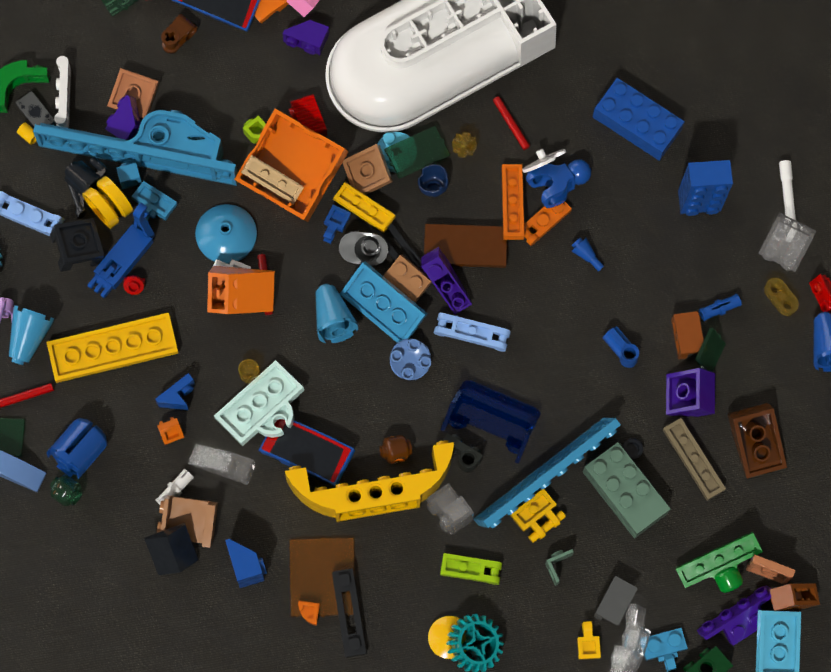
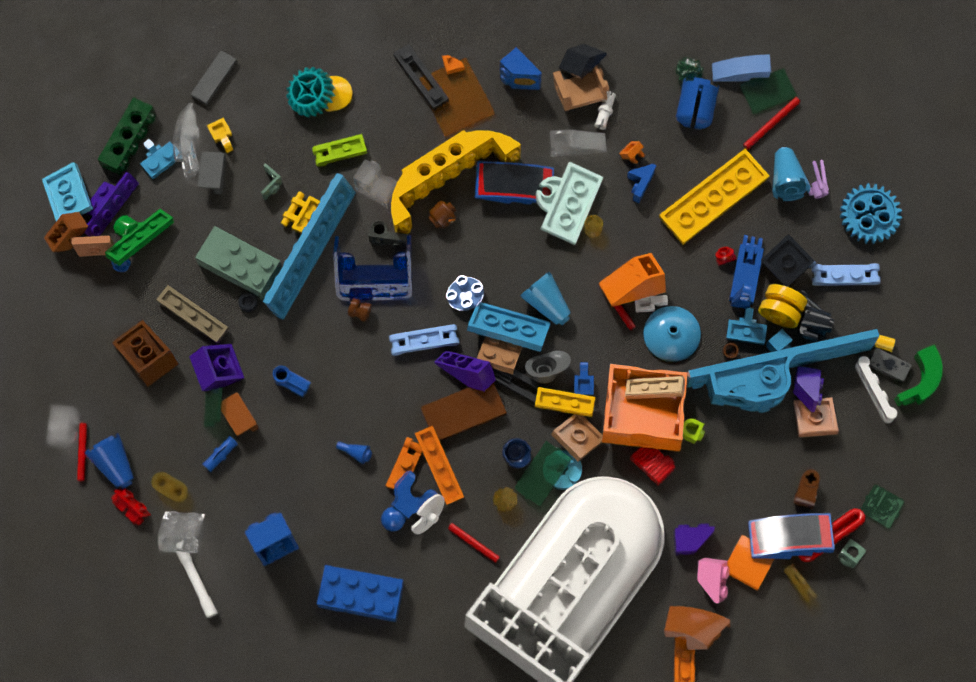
camera: 160 degrees right, 0 degrees up
(179, 189) = (732, 354): none -> reddish brown hinge
(523, 388) = (359, 309): none -> reddish brown wheel

